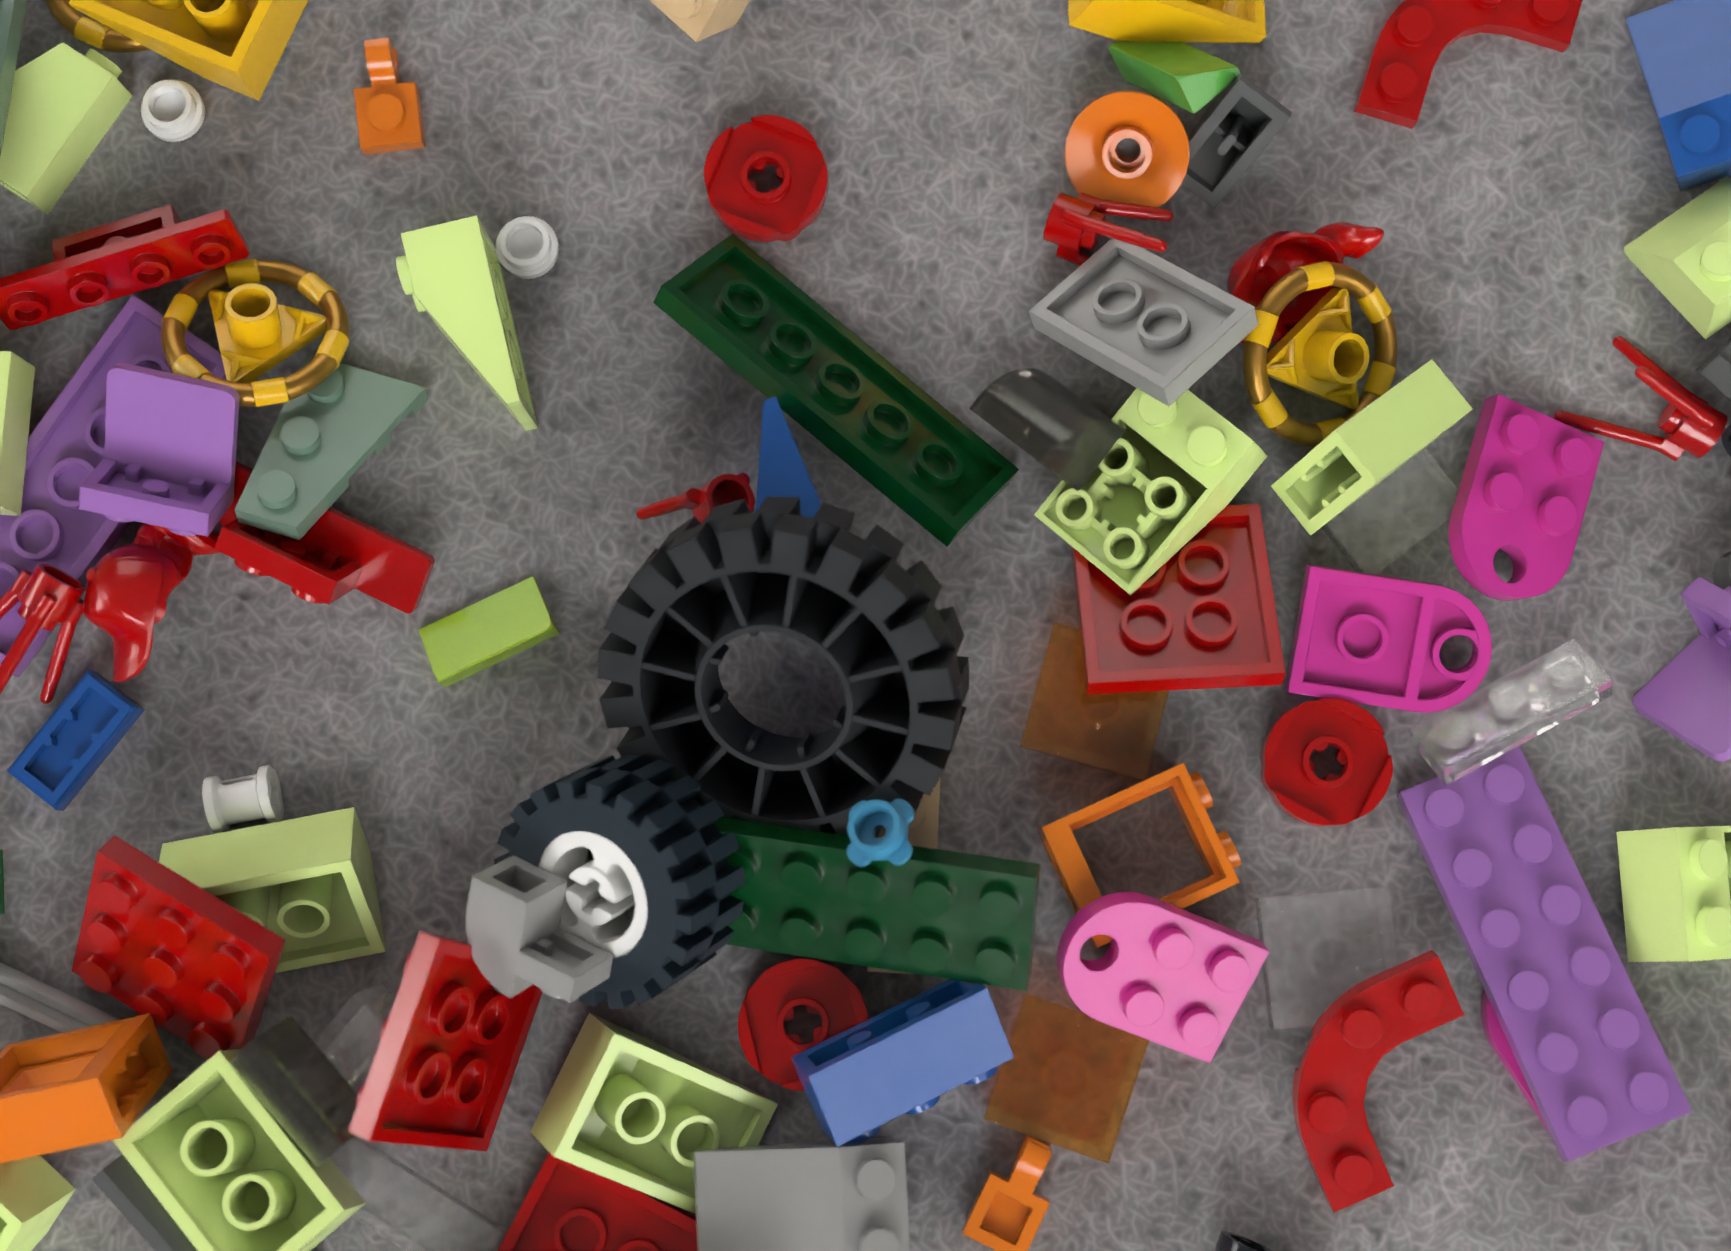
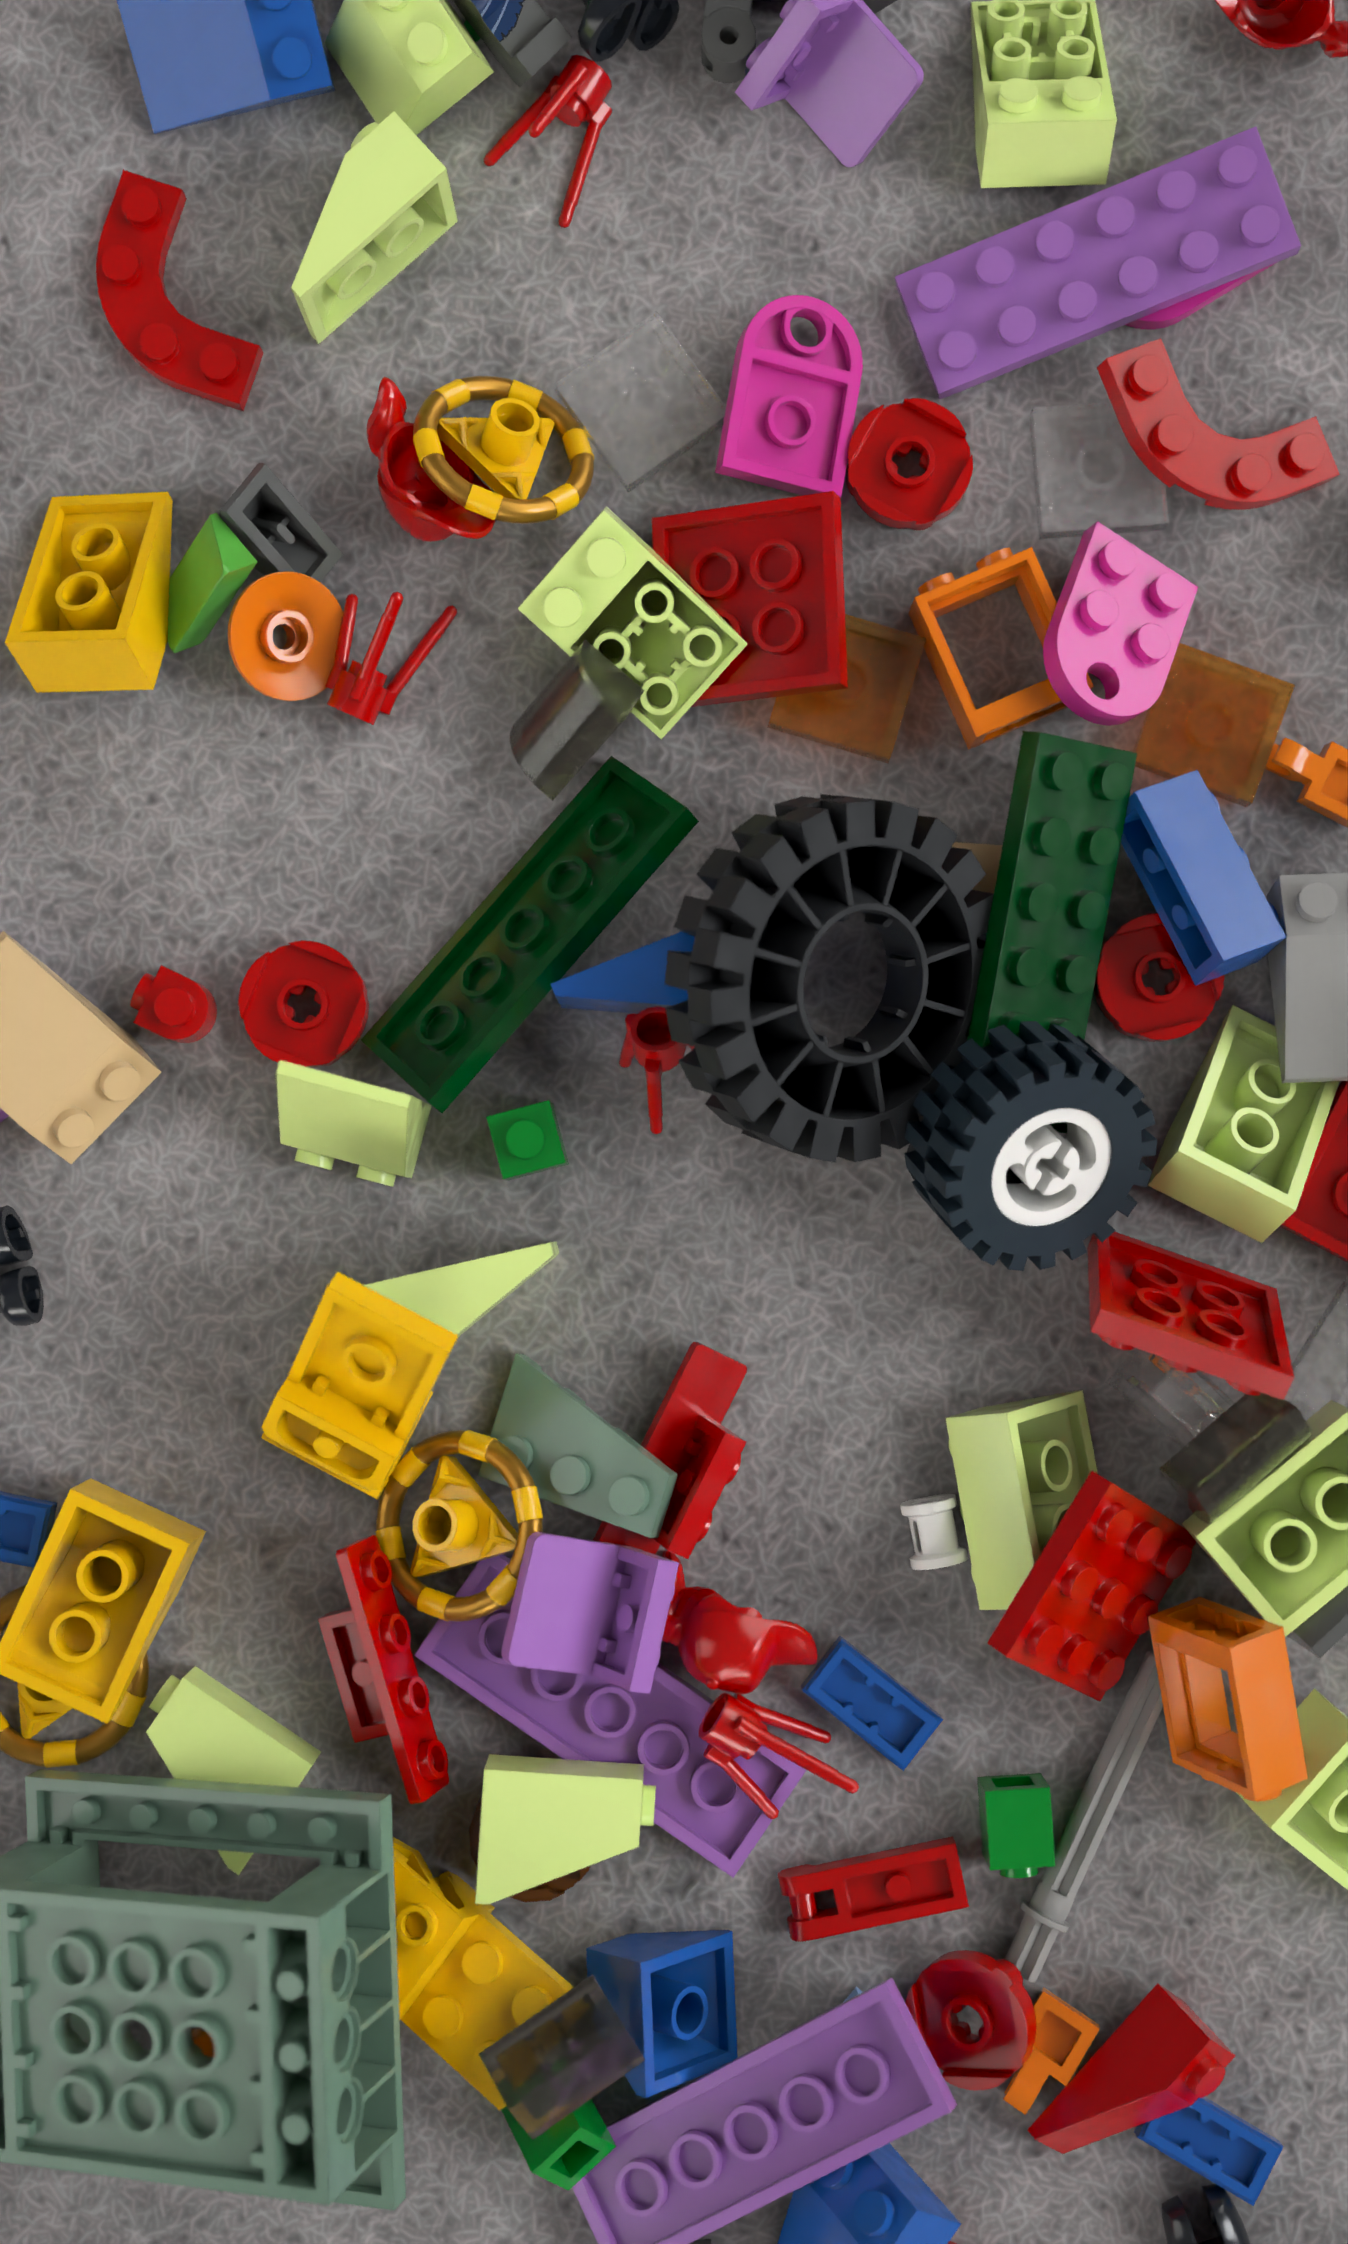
camera: 90 degrees left, 5 degrees up
(172, 110) = (214, 1621): white plate -> none
(375, 218) = (358, 1385): none -> yellow piece
(389, 110) = (220, 1395): orange plate -> none
(488, 632) = (766, 1289): lime slope -> none
(517, 934) = (1090, 1240): light grey brick -> none
(527, 247) = (369, 1250): white plate -> none
(631, 392) = (527, 1140): none -> green brick
(649, 216) = (349, 1122): none -> yellowish green slope
(763, 56) = (174, 1006): none -> red plate
(863, 822) = (981, 899): dark azure plate -> none
(1144, 319) = (471, 619): light grey plate -> none
(1371, 446) = (605, 398): yellowish green slope -> none
(1511, 711) = (862, 282): clear plate -> none
(1523, 496) = (652, 260): dark pink plate -> none
(1536, 215) = (377, 219): none -> yellowish green slope

